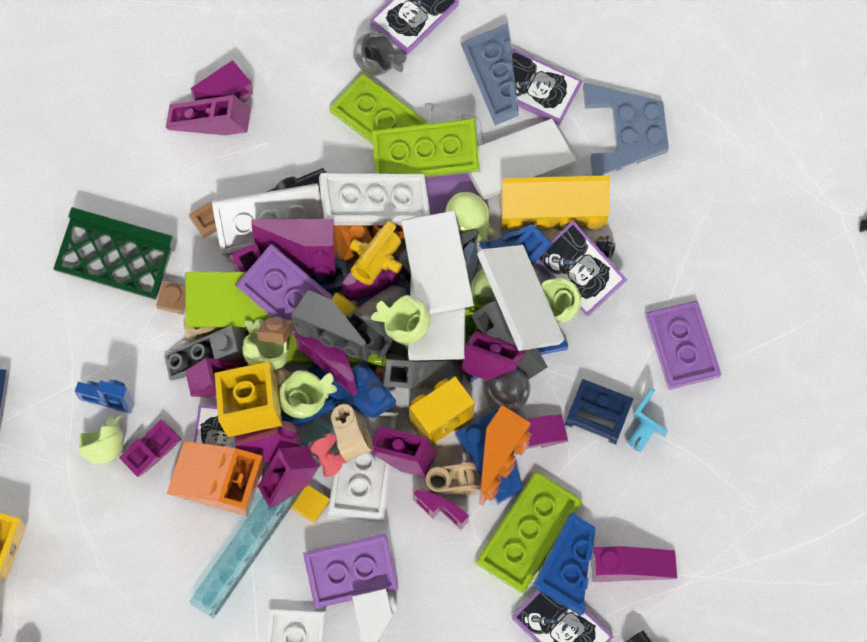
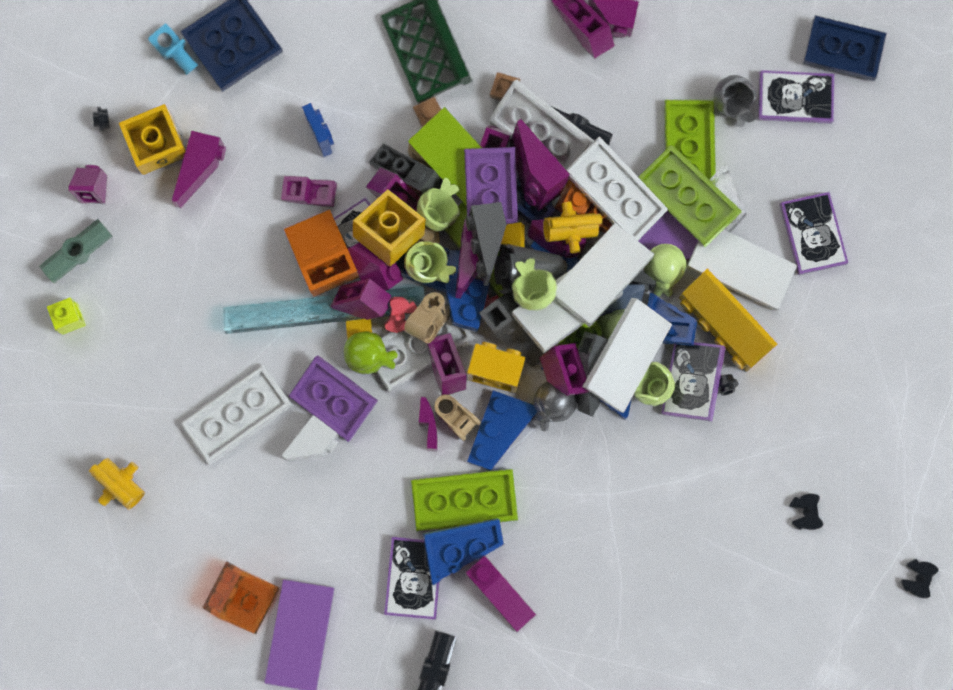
camera: 55 degrees right, 10 degrees up
(42, 519) = (199, 163): none -> magenta slope
(103, 445) = (282, 157): yellowish green hat -> none
(275, 330) = (455, 204): medium nougat plate -> none
(336, 509) = (367, 353): none -> lime hat
(493, 70) = (797, 191): sand blue wing -> none
(504, 439) = (504, 429): orange slope -> none
(547, 431) = (541, 448): magenta slope -> none
(603, 403) = (602, 476): dark blue plate -> none
(637, 128) = (846, 334): sand blue wing -> none
(646, 427) = (610, 523): medium azure bracket -> none
(683, 345) = (699, 501): medium lavender tile -> none
(767, 271) = (809, 504): none -> black piece

